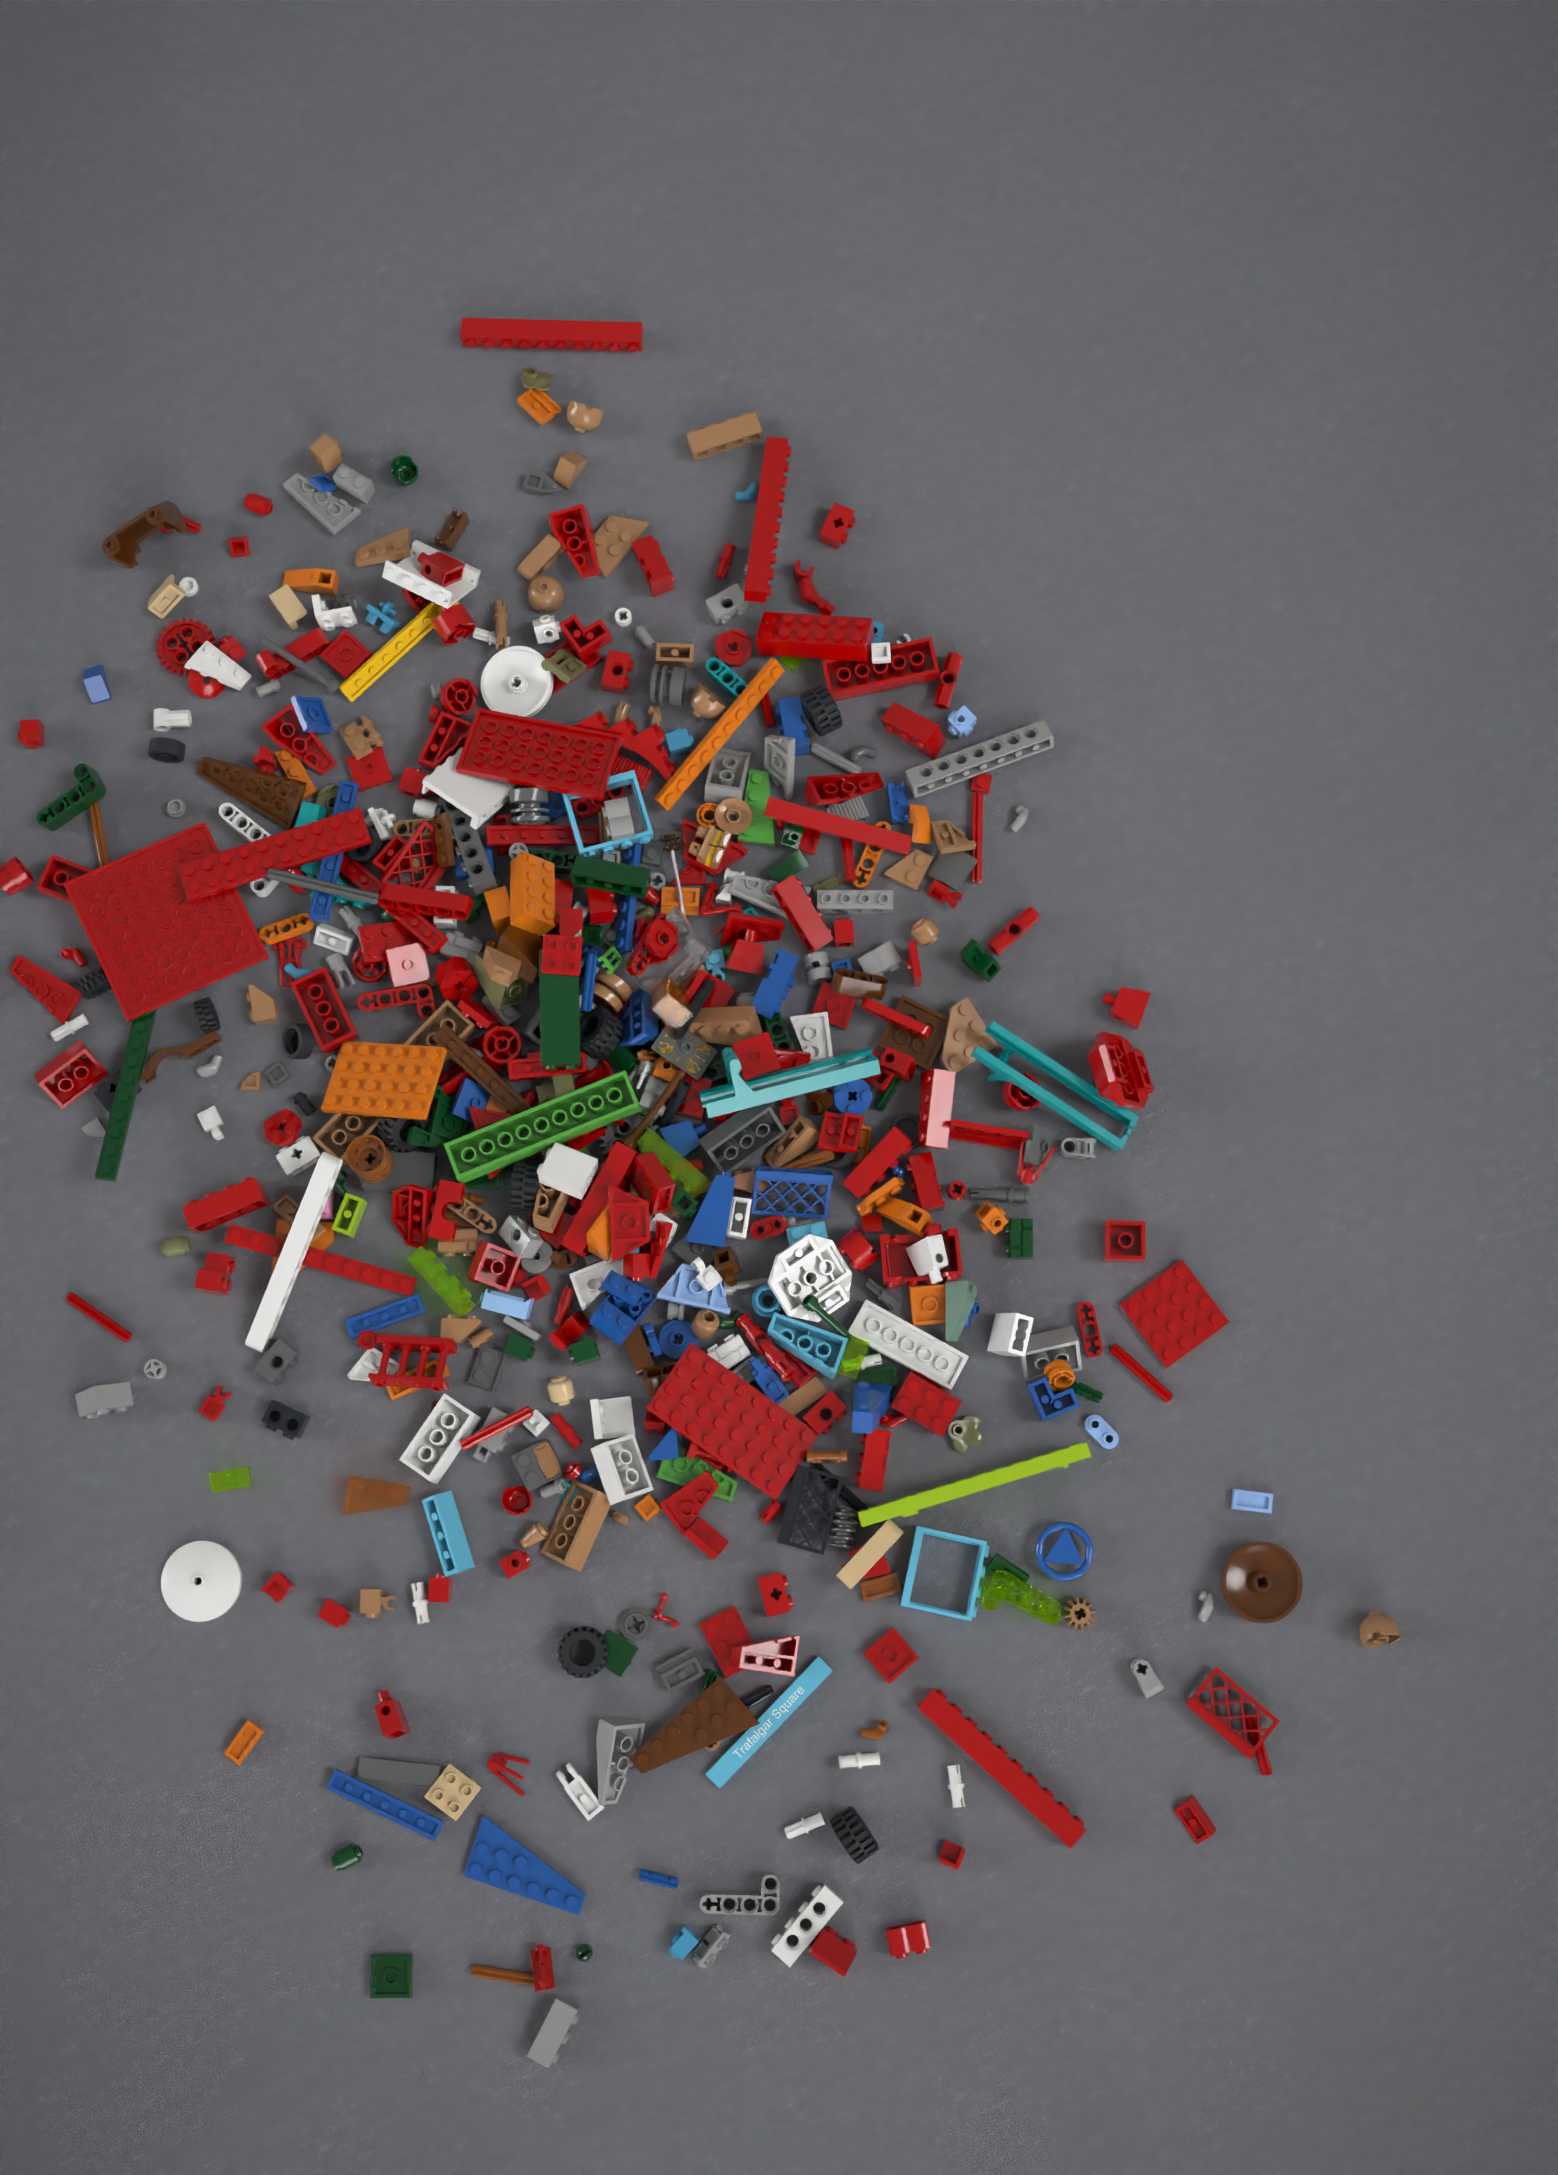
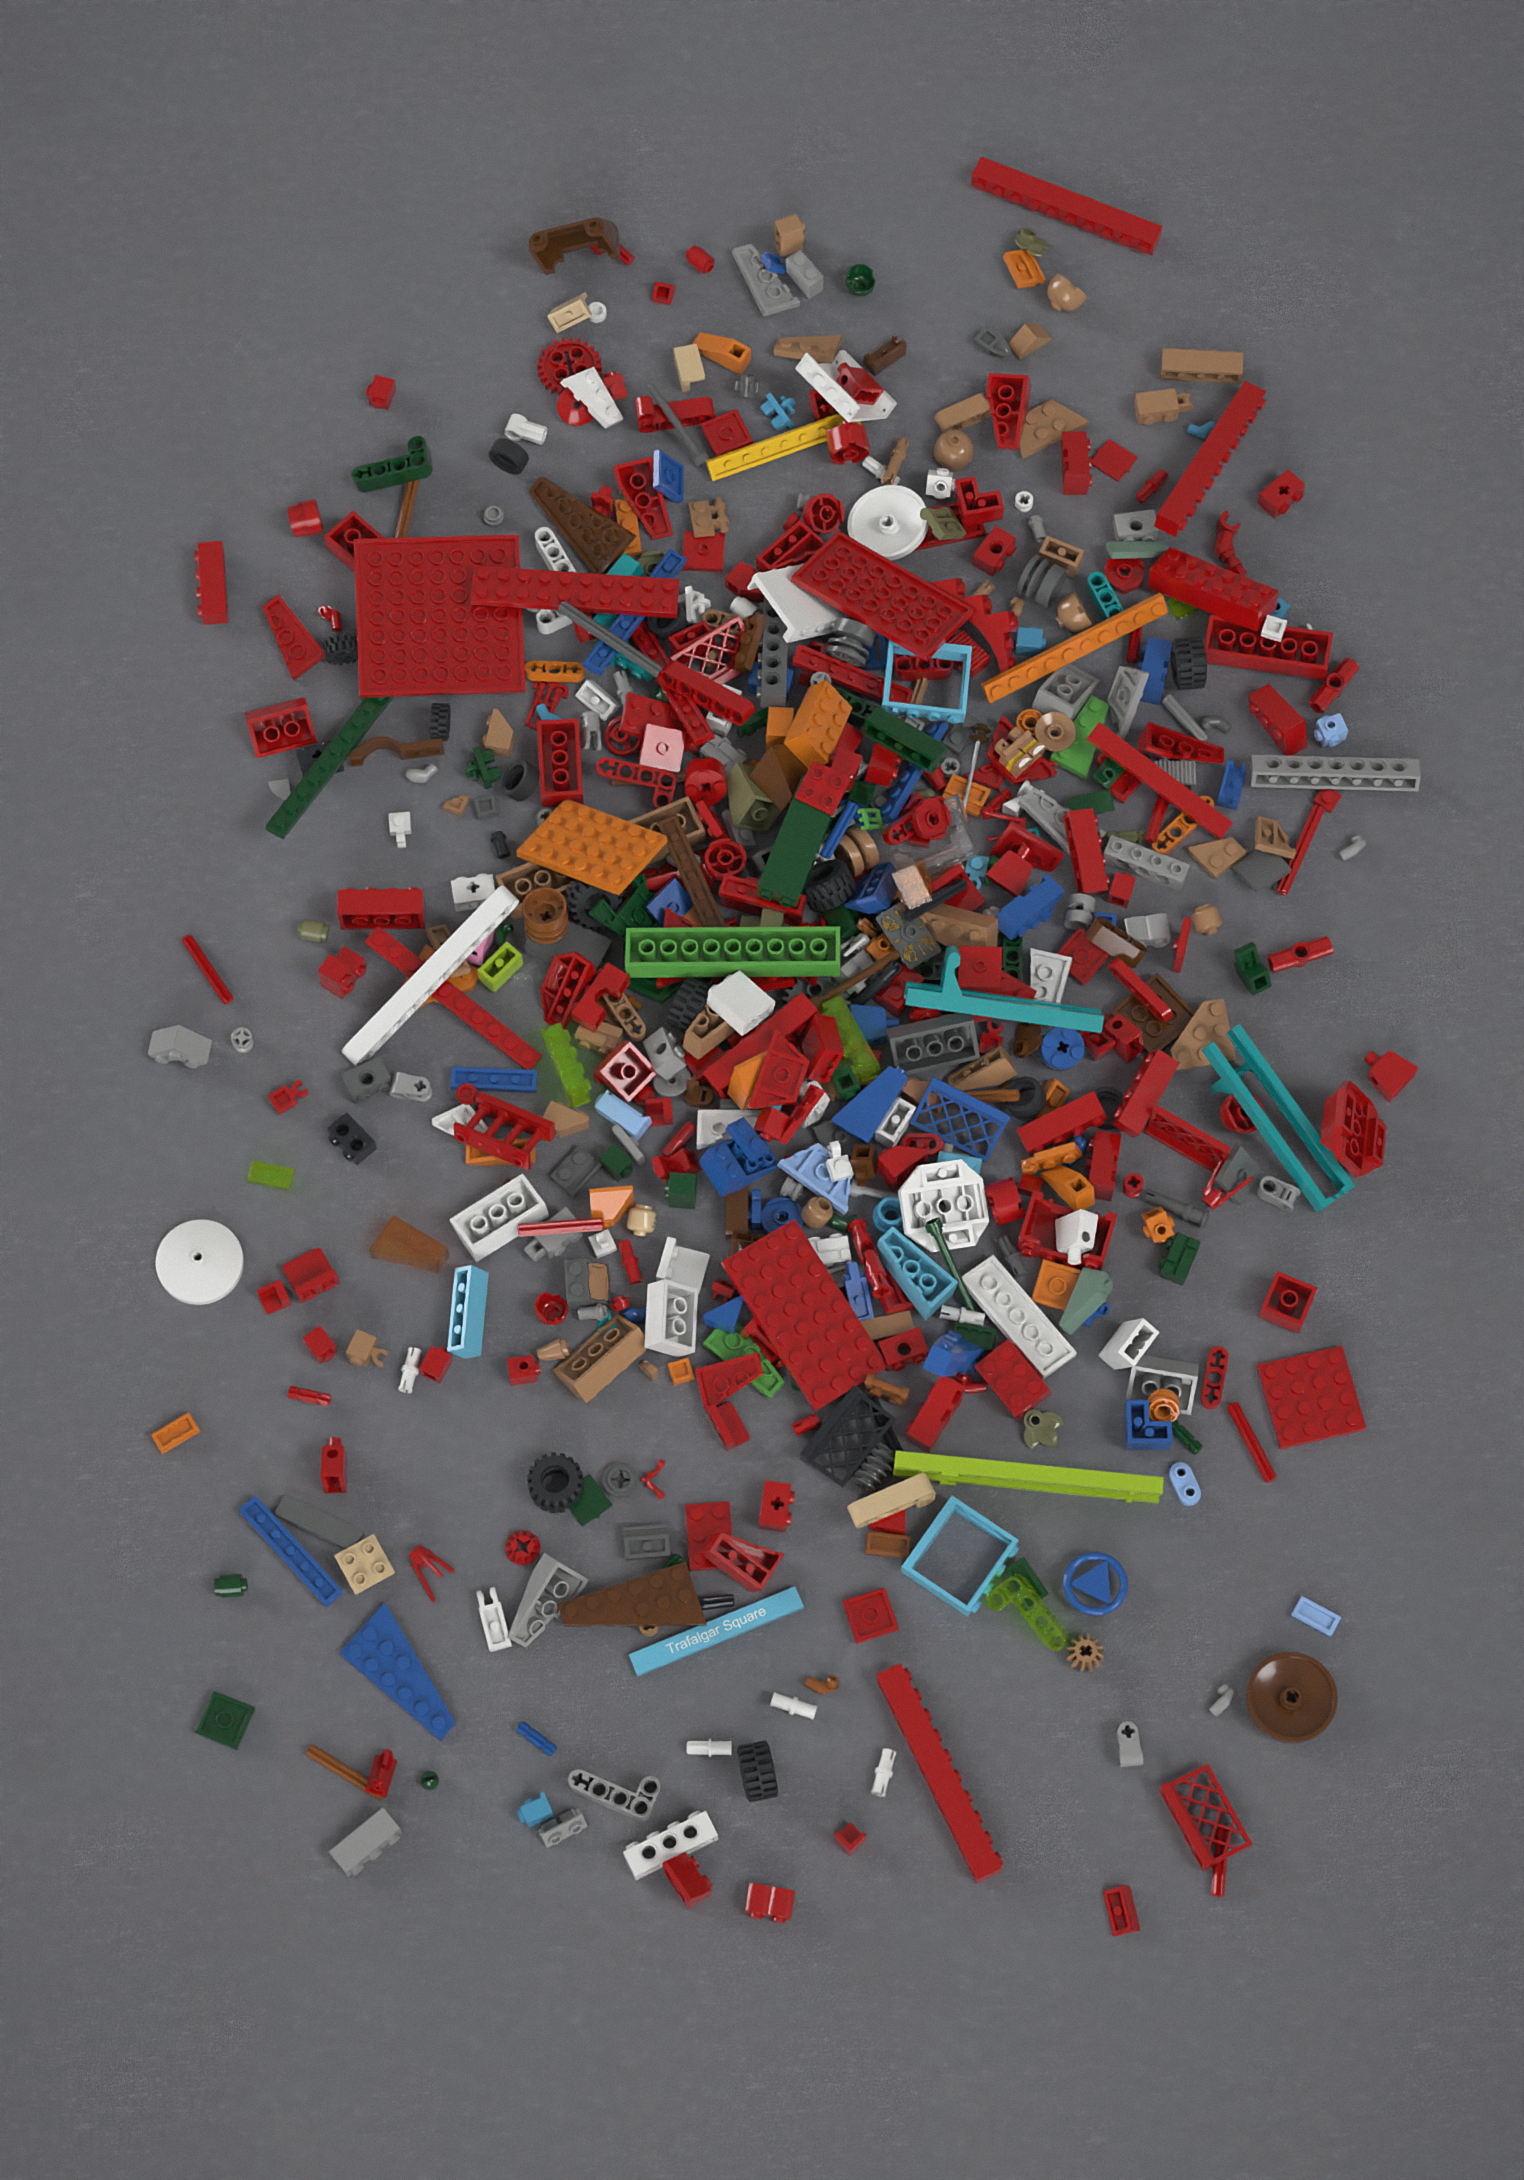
camera: 20 degrees right, 10 degrees down
(69, 1027) = (297, 683): white axle -> none
(96, 684) = (465, 370): slope -> none
(268, 688) = (635, 437): light grey pin -> none
(268, 1045) = (488, 775): none -> dark green hips
(276, 1122) = (460, 854): red plate -> none
(301, 1554) = (310, 1275): none -> red bracket
(314, 1353) = (407, 1087): none -> light grey piece
(334, 618) = (729, 392): white bracket -> none
(342, 1661) = (309, 1396): none -> red axle
(481, 1337) = (581, 1138): medium nougat pin -> none
(500, 966) = (757, 780): medium nougat slope -> none
(529, 1390) = (611, 1203): none -> orange slope
(576, 1708) = (522, 1557): none -> red gear
(619, 819) = (937, 685): light grey brick -> none
(683, 549) = (1113, 460): none -> red piece
(704, 486) = (1160, 406): none -> medium nougat brick
(736, 623) = (1136, 549): none -> sand green tile
(758, 1254) = (898, 1164): none -> red slope
(840, 1132) = (1035, 1077): red slope -> none
(853, 1357) = (955, 1303): clear neon green plate -> none
(888, 1093) = (1101, 1064): dark green axle -> none
(921, 824) = (1247, 813): orange slope -> none
(932, 1229) = (1091, 1205): red plate -> none
(942, 894) = (1239, 890): red plate -> none
(1378, 1629) = (1396, 1797): medium nougat cylinder -> none

